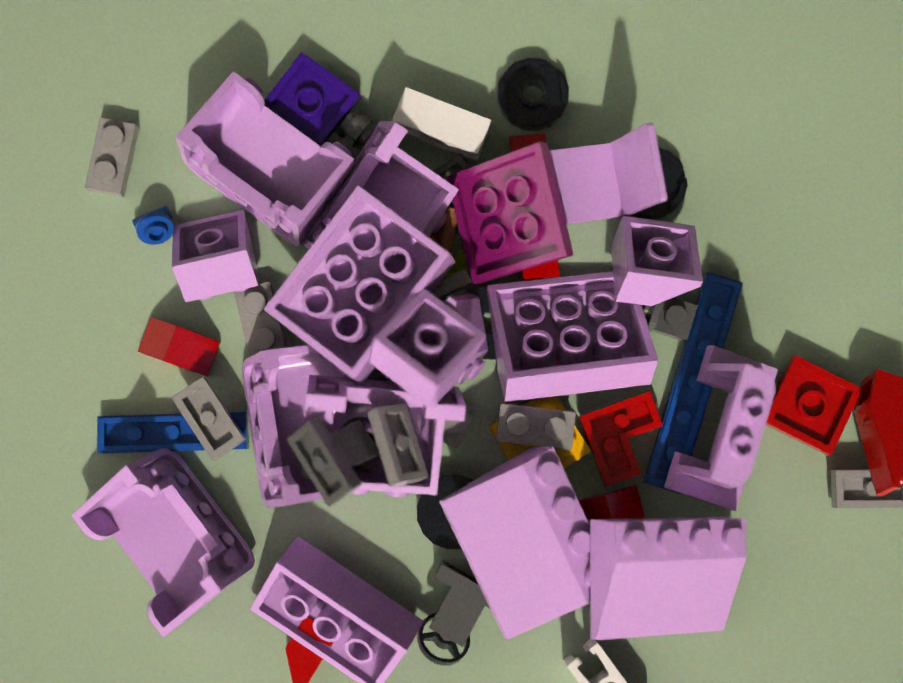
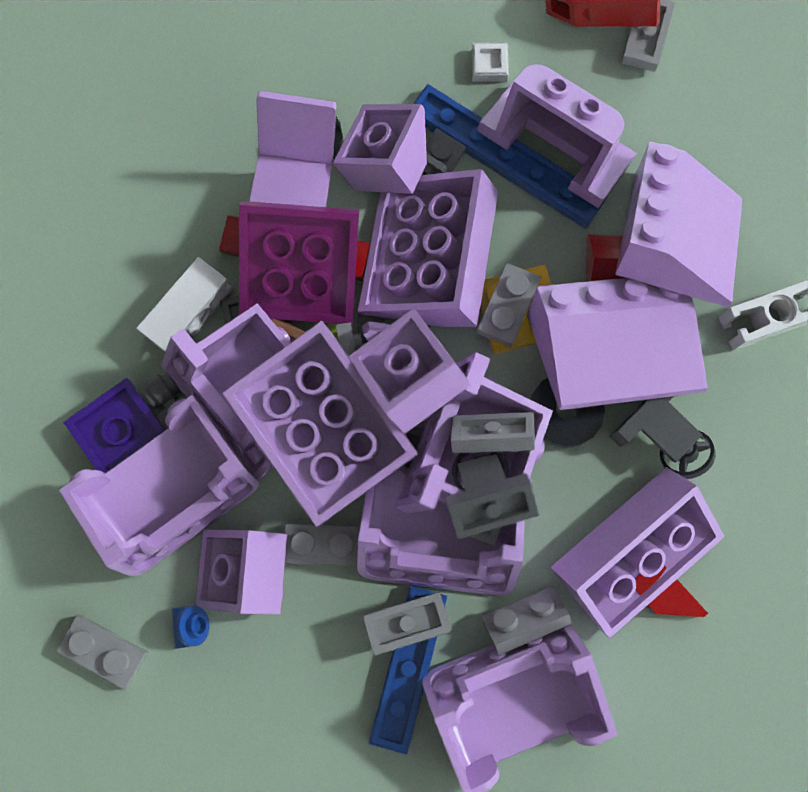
camera: 70 degrees left, 5 degrees down
(179, 346) = (321, 637): red slope -> none
(244, 527) = (526, 620): none -> light grey plate
(527, 114) = (191, 236): black tile -> none
(610, 431) = (532, 242): red plate -> none
(787, 337) = (489, 62): none -> white tile
(812, 405) = (562, 49): red plate -> none

